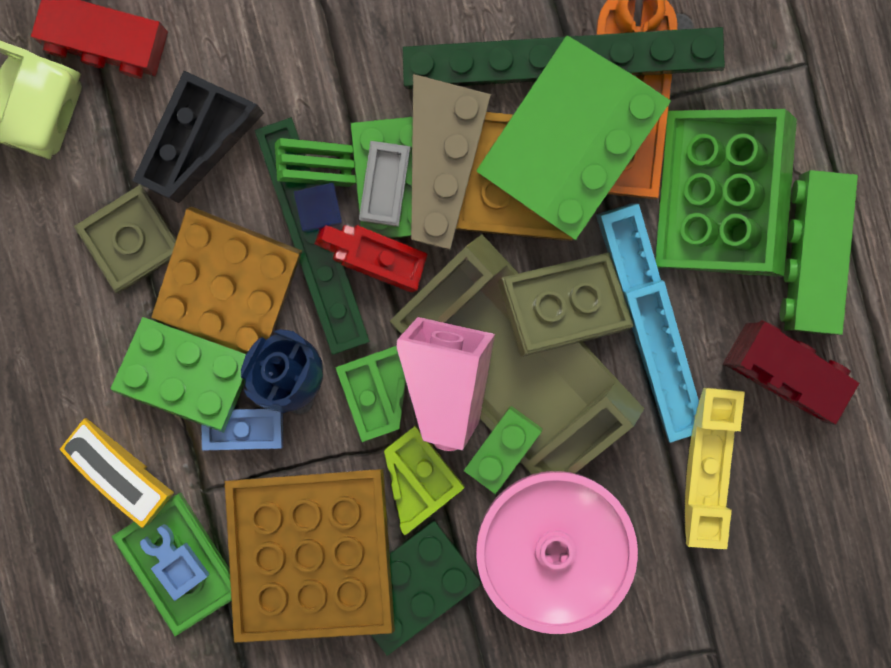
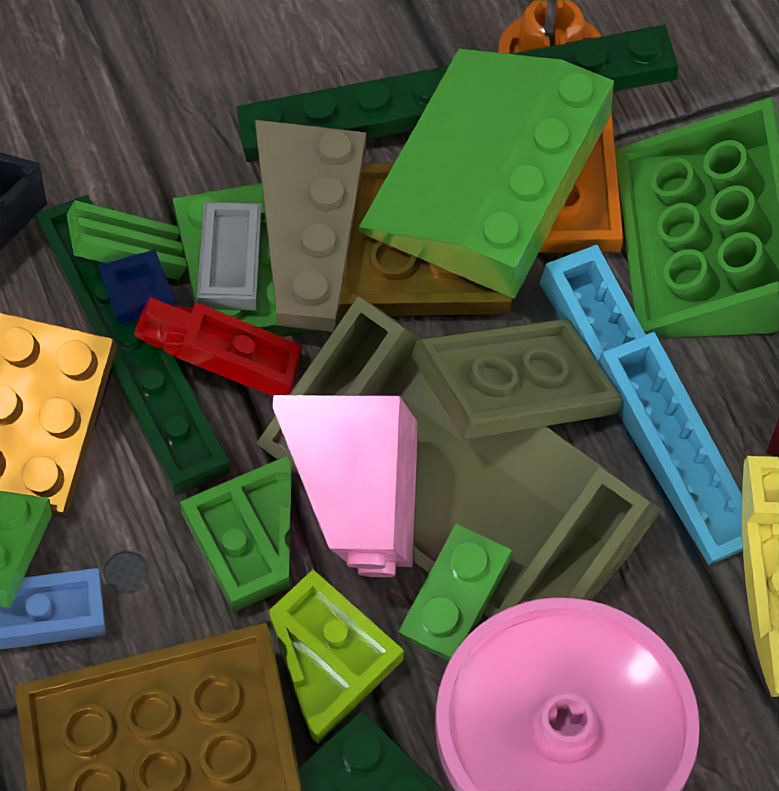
camera: 10 degrees left, 30 degrees down
(282, 372) = (102, 507): dark blue cylinder -> none

